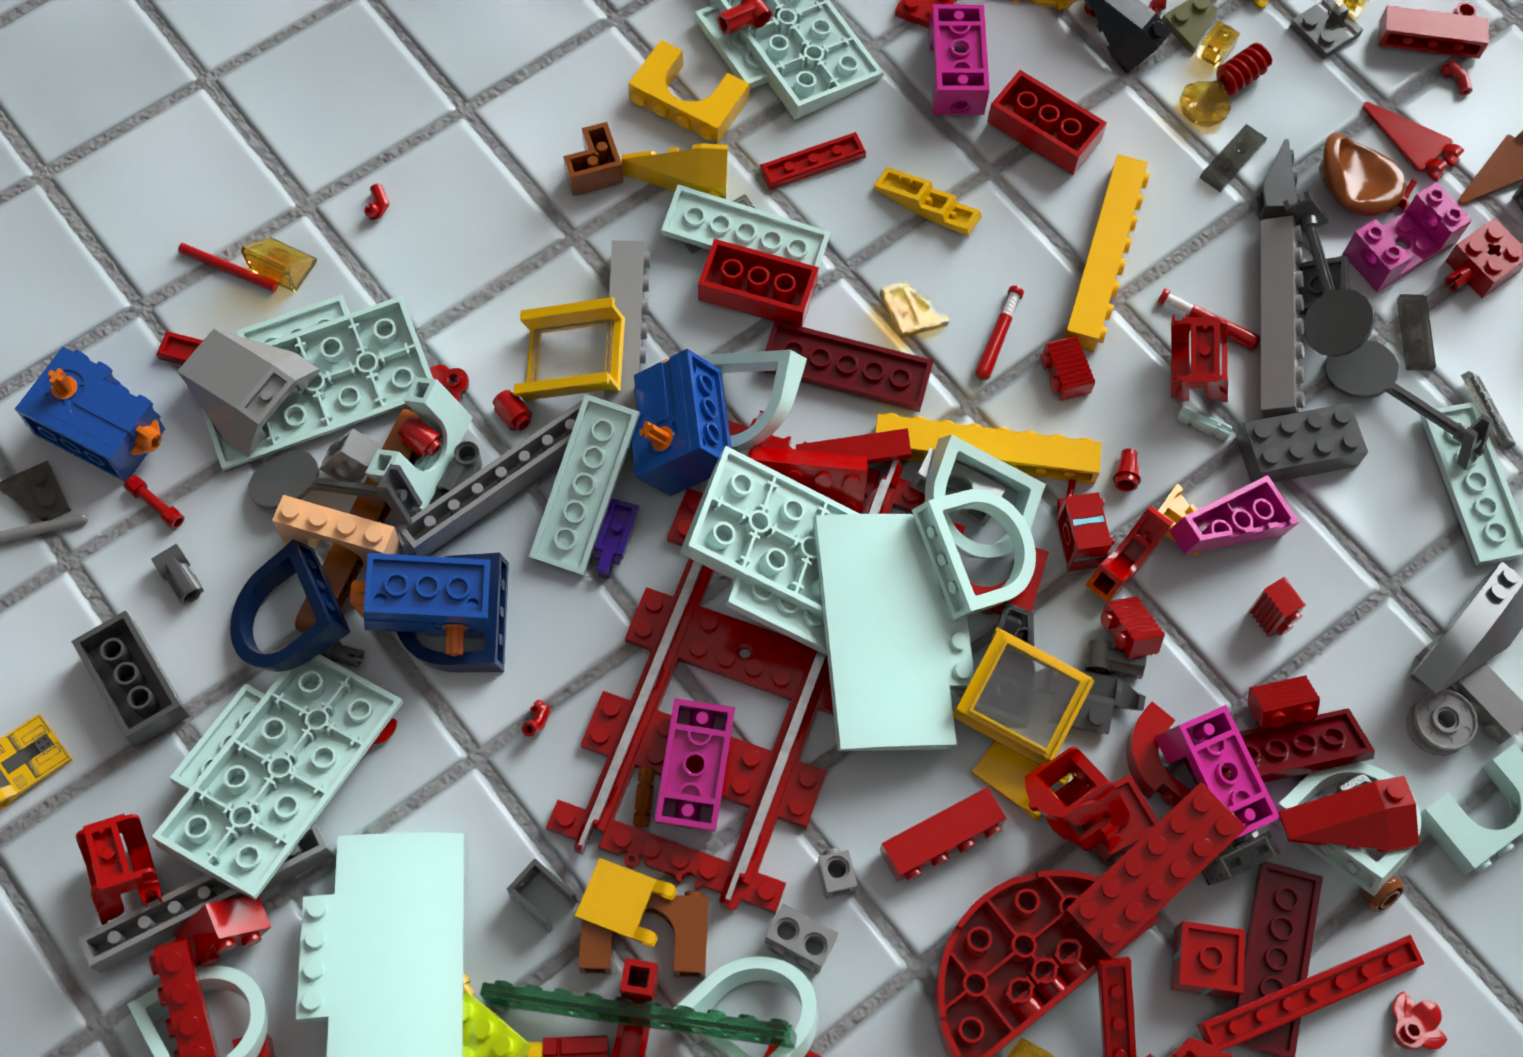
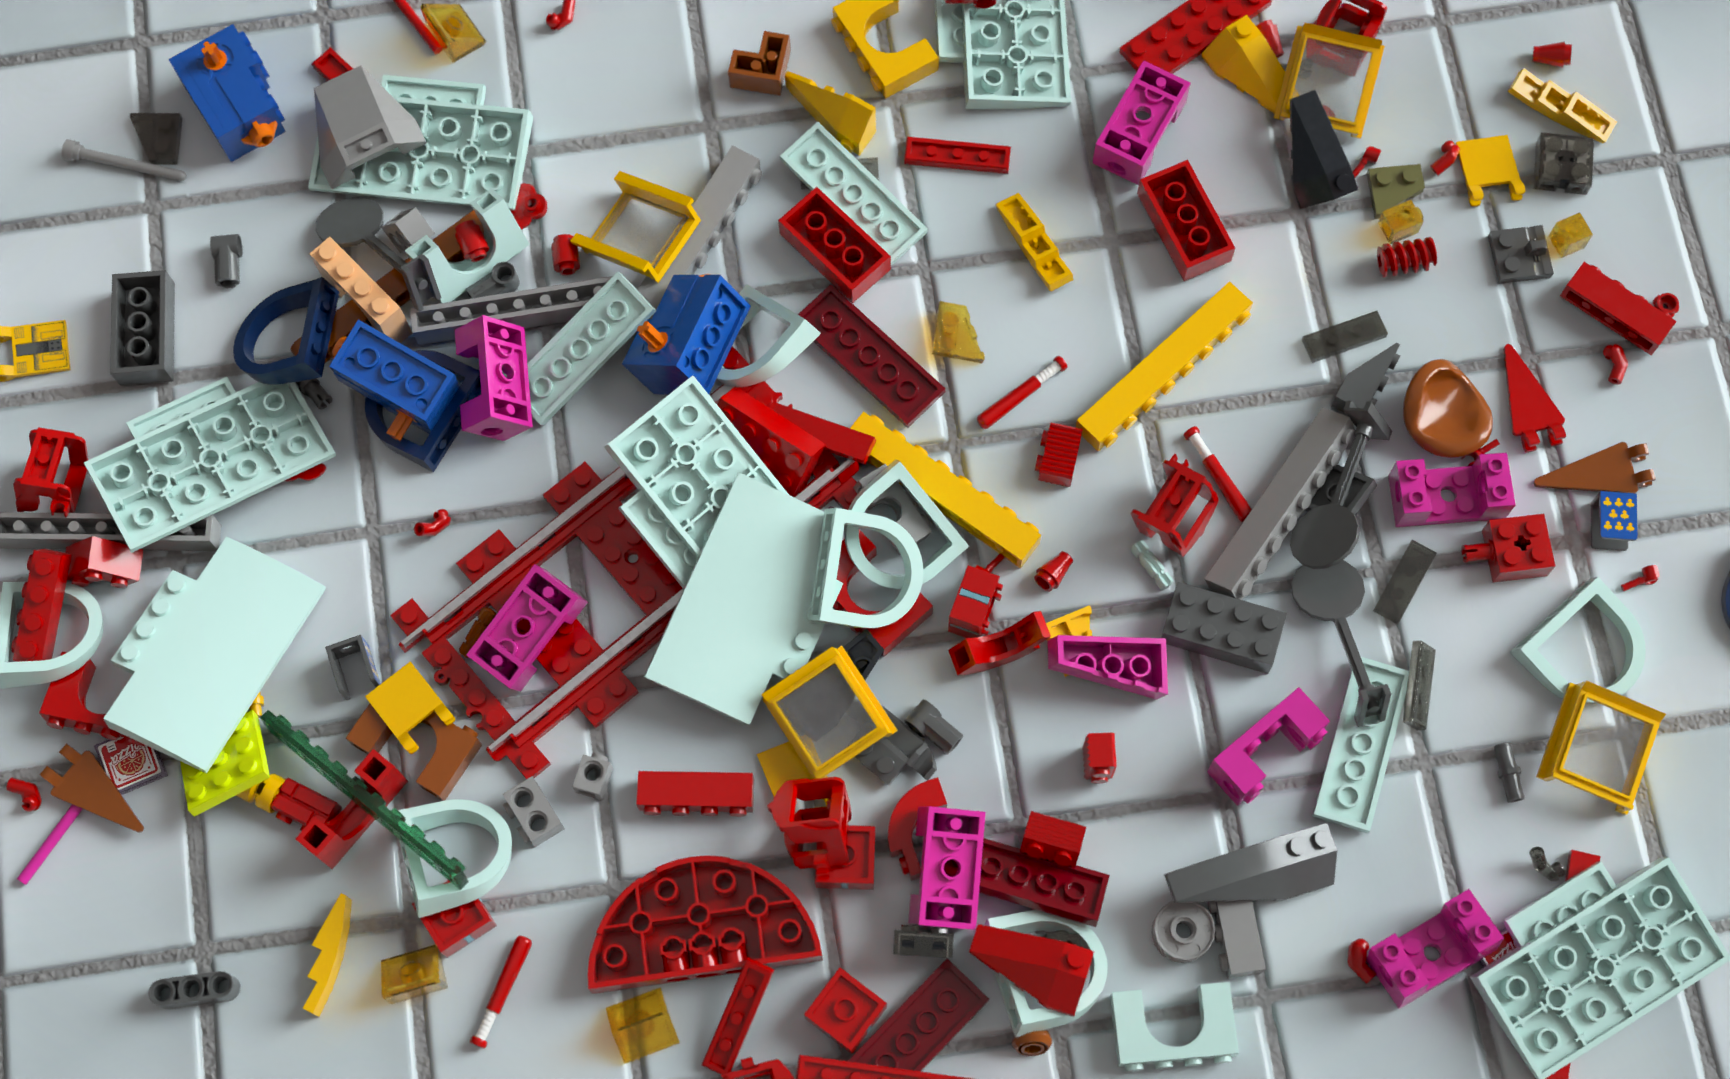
camera: 35 degrees right, 5 degrees up
(169, 515) = (236, 172): red bar -> none
(508, 520) = (504, 402): none -> dark pink plate
(615, 535) = (585, 404): dark purple hinge -> none
(1132, 627) = (961, 707): red brick -> none
(1155, 869) = (839, 912): red plate -> none
(1205, 103) = (1351, 272): clear yellow dish -> none
(1397, 557) = (1295, 717): none -> dark pink plate

